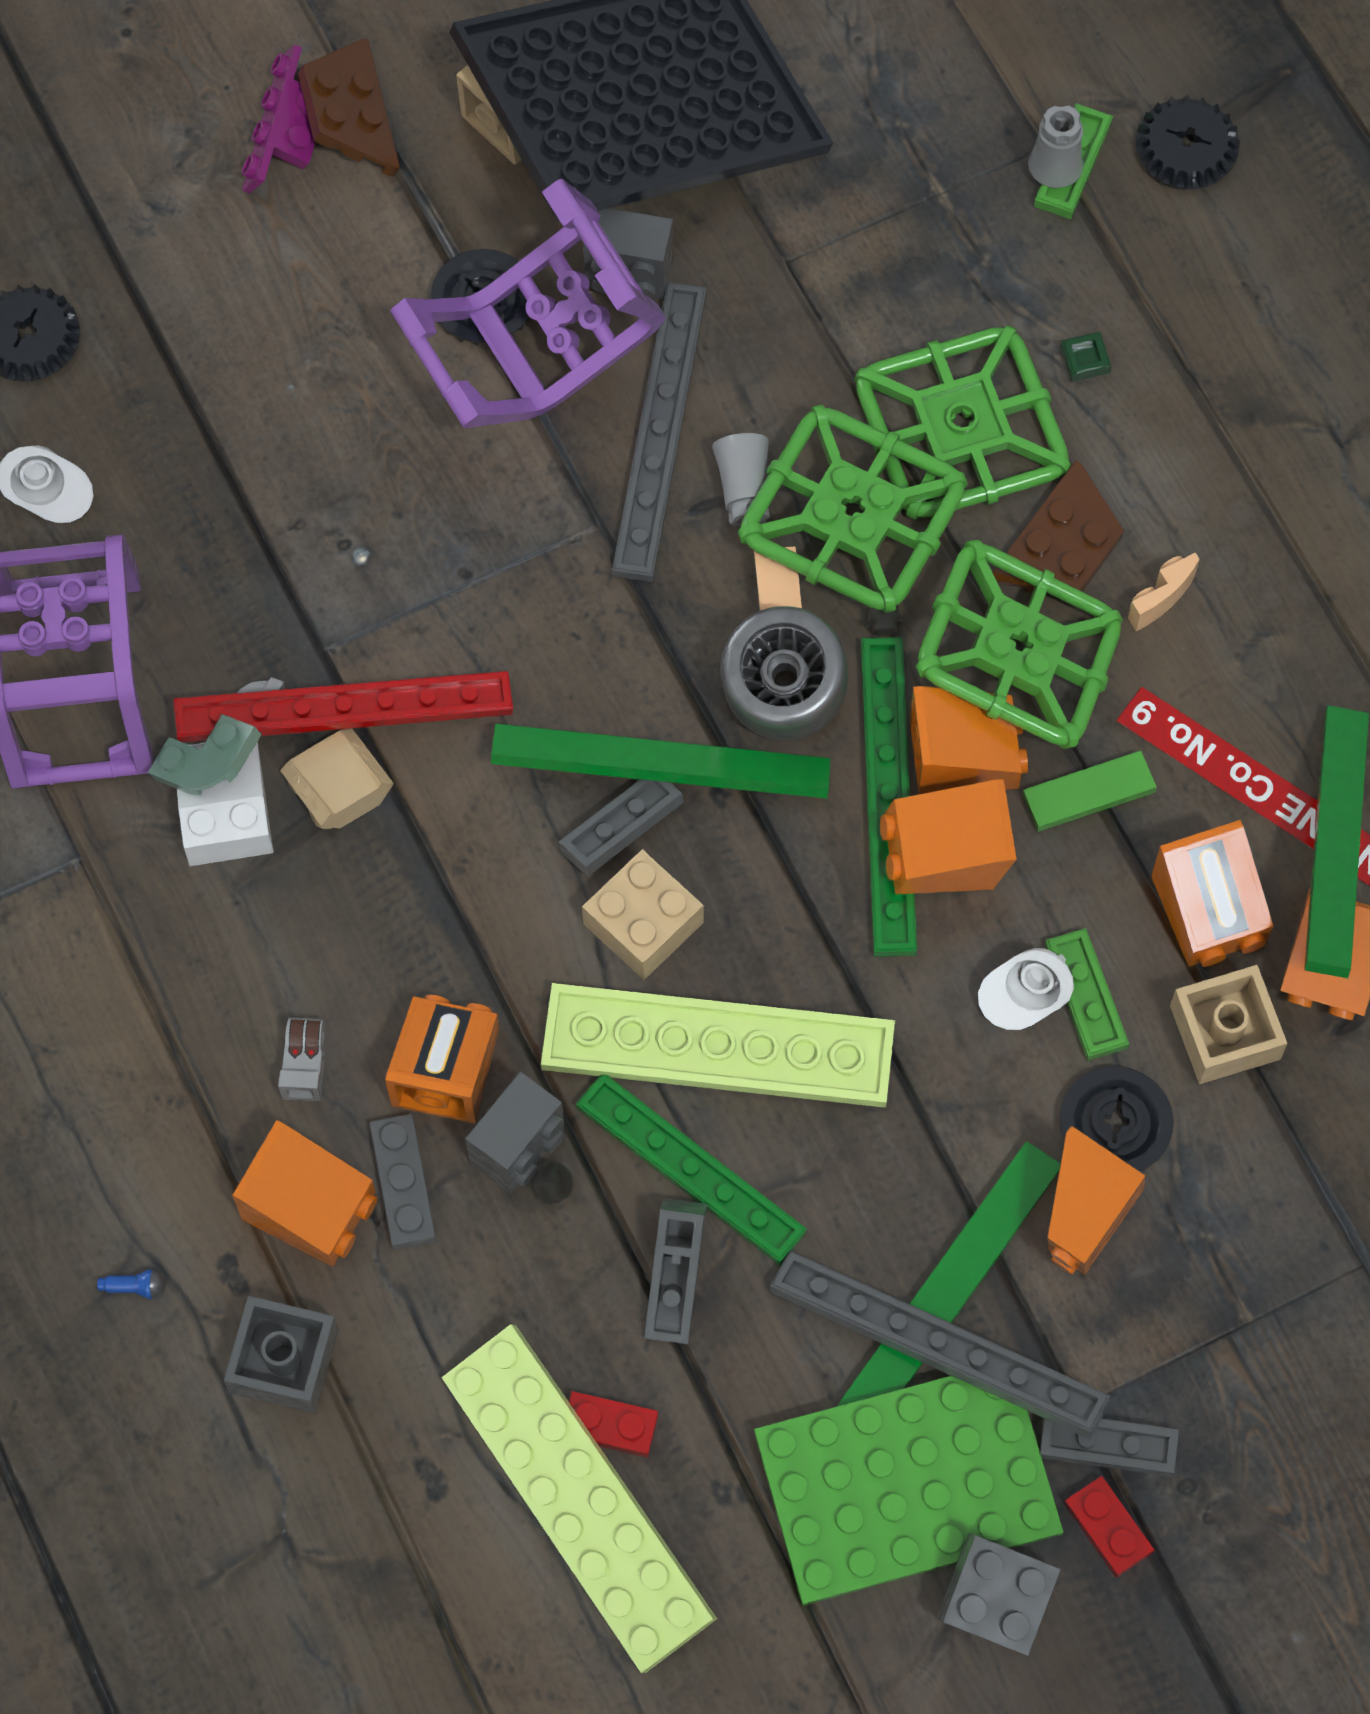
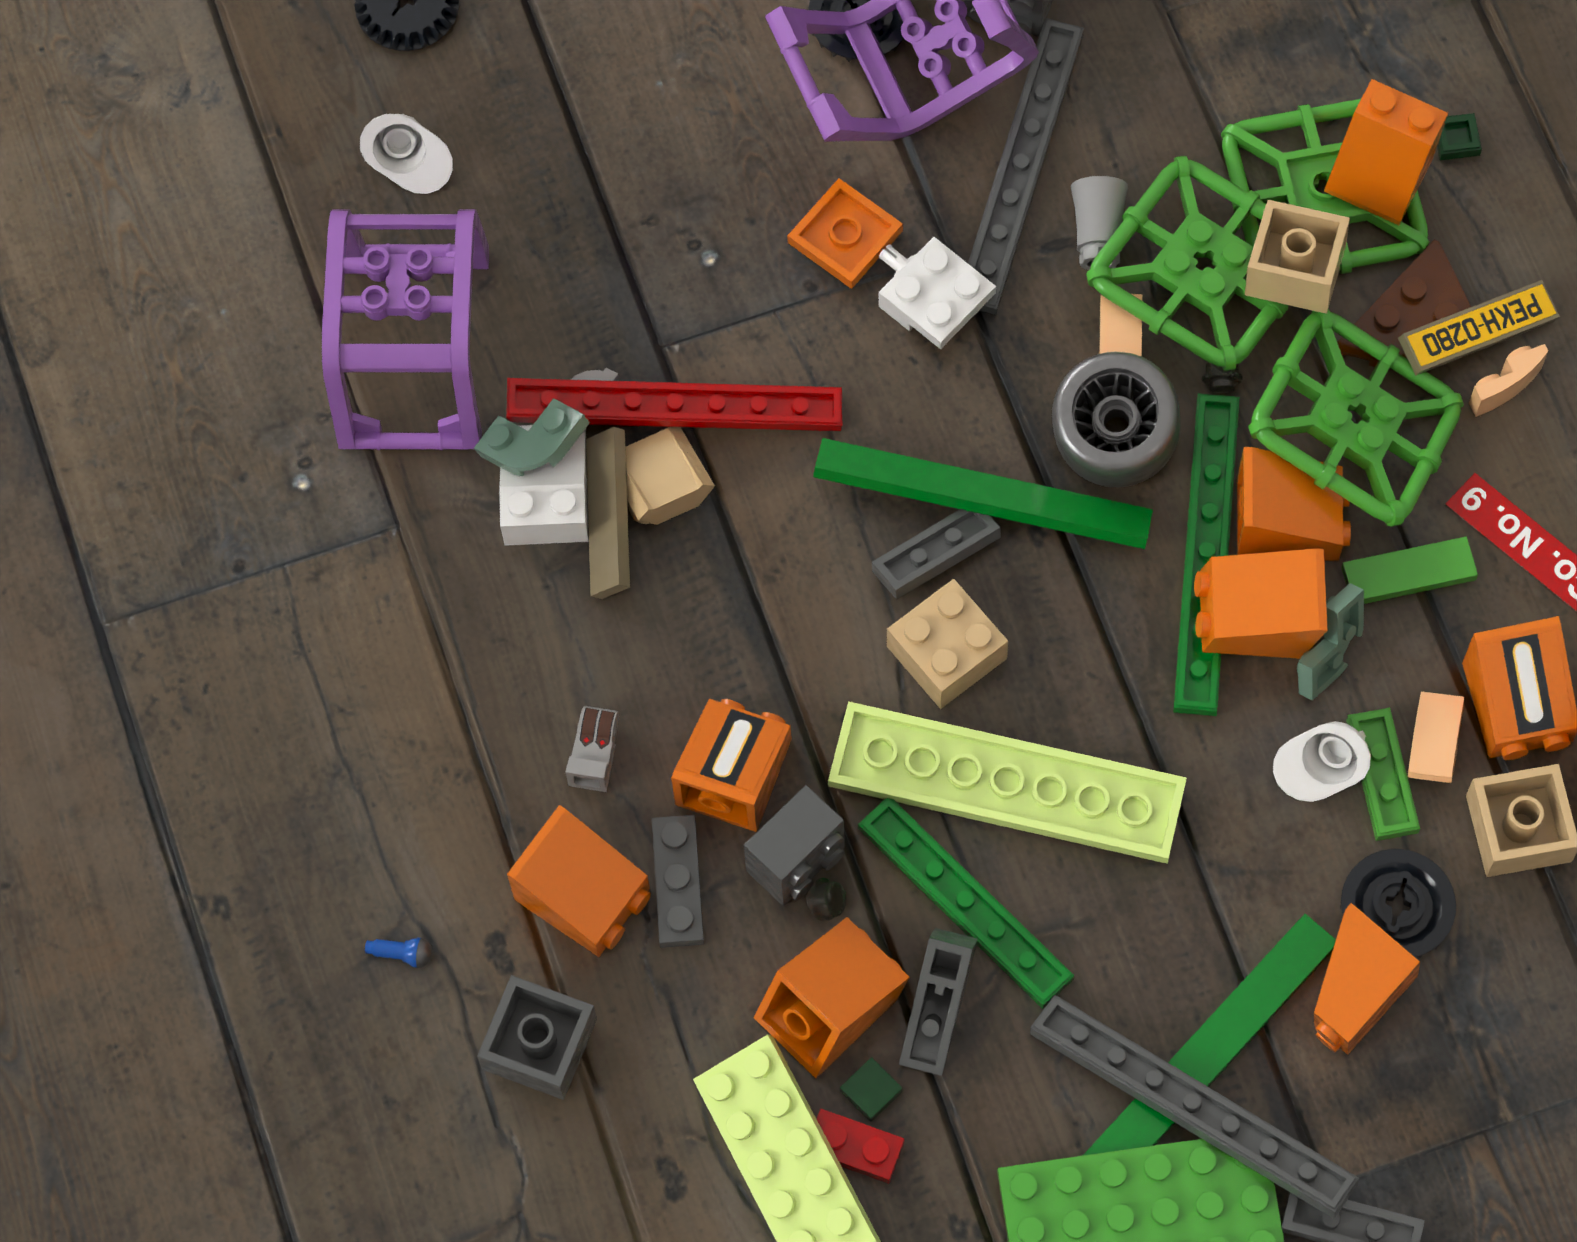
camera: 10 degrees right, 0 degrees up
(289, 822) = (607, 513): none -> dark tan tile
(493, 517) = (845, 233): none -> orange plate
(568, 1278) = (830, 996): none -> orange slope
(588, 565) = (933, 291): none -> white plate
(619, 1366) = (871, 1089): none -> dark green tile
(943, 492) = (1297, 256): none -> tan brick
(1017, 891) = (1325, 661): none -> sand green plate
(1018, 379) = (1386, 152): none -> orange slope
(1128, 543) = (1478, 327): none -> tile
(1134, 952) = (1436, 737): none -> light nougat slope

